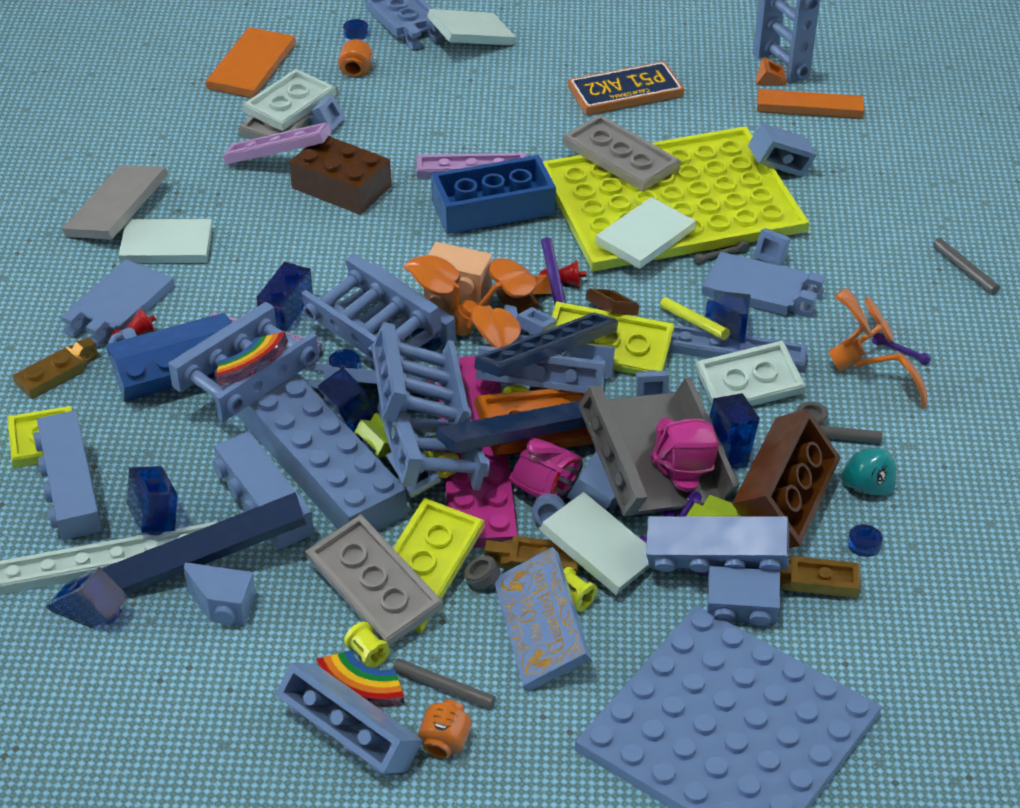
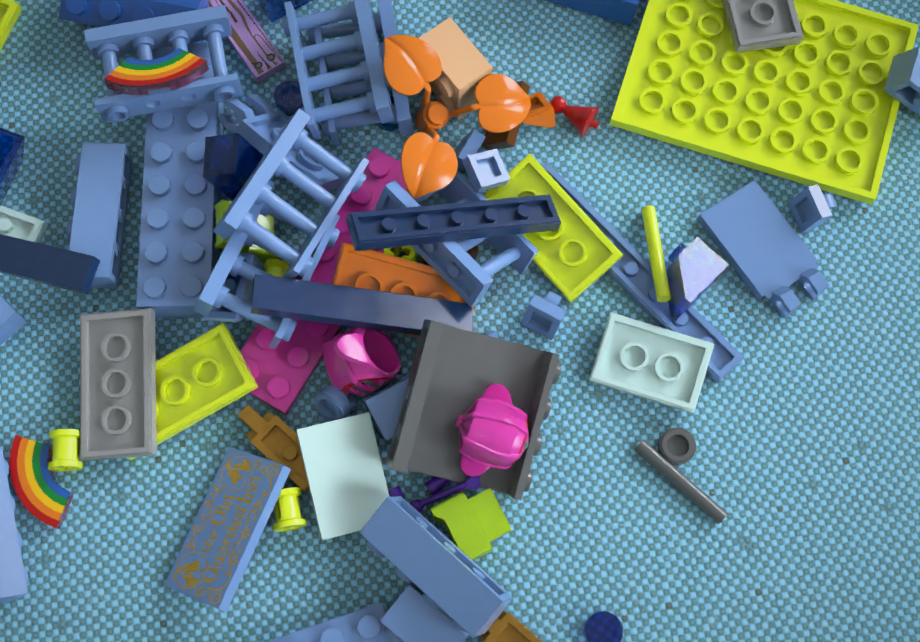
camera: 30 degrees right, 30 degrees up
(444, 684) = (104, 533): dark grey bar -> none
(445, 729) = (59, 590): orange head -> none
(482, 572) = (223, 434): dark grey tile -> none
(552, 270) = (558, 114): dark purple bar -> none
(612, 301) = (587, 185): reddish brown tile -> none
(645, 232) = (691, 114): light aqua tile -> none
(735, 427) = (566, 430): clear blue brick -> none
(743, 247) = (785, 184): dark grey hinge -> none
(789, 474) = (567, 529): reddish brown brick -> none
(852, 350) = (781, 399): orange plant -> none
(870, 472) = (668, 563): teal piece -> none
(879, 339) = (827, 391): dark purple hinge -> none

